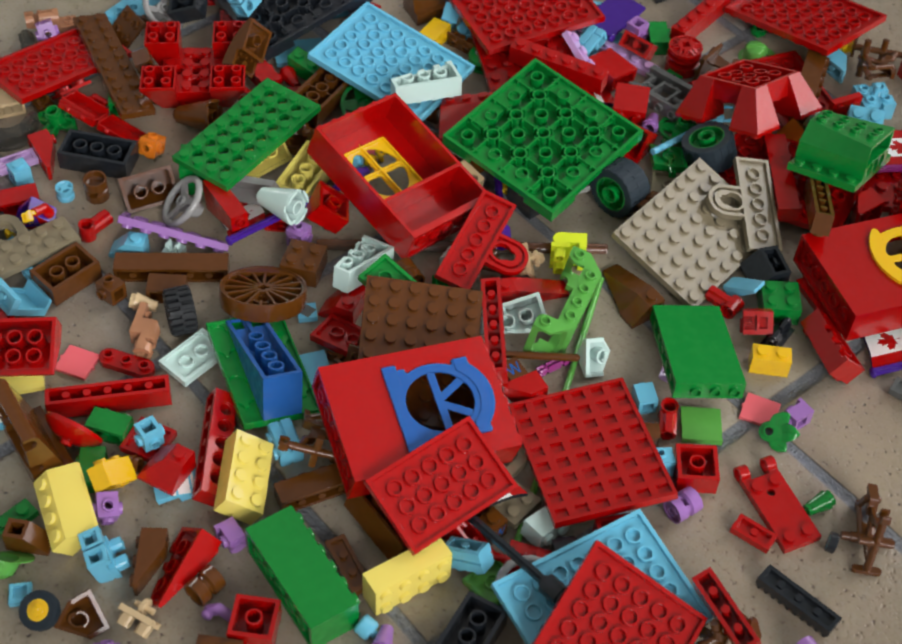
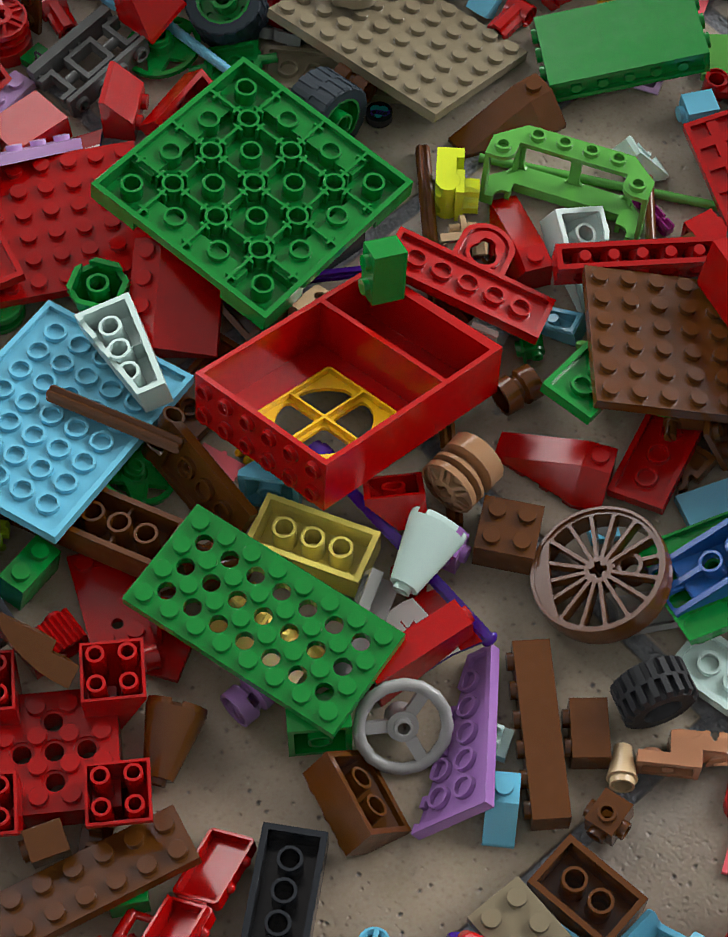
camera: 90 degrees left, 10 degrees up
(91, 226) = (454, 874): red piece -> none
(96, 187) = (367, 886): reddish brown wheel -> none
(152, 145) = (250, 806): orange brick -> none
(289, 76) = (48, 600): red cone -> none
(339, 231) = (462, 472): none -> medium nougat wheel
(358, 259) = (526, 441): light aqua wedge -> none
(385, 80) = (115, 419): none -> reddish brown axle
(470, 181) = (383, 270): none -> green brick
(479, 80) = (96, 283): none -> green cone
(575, 70) = (56, 180): red brick -> none
(651, 123) = (156, 84): medium lavender cone -> none

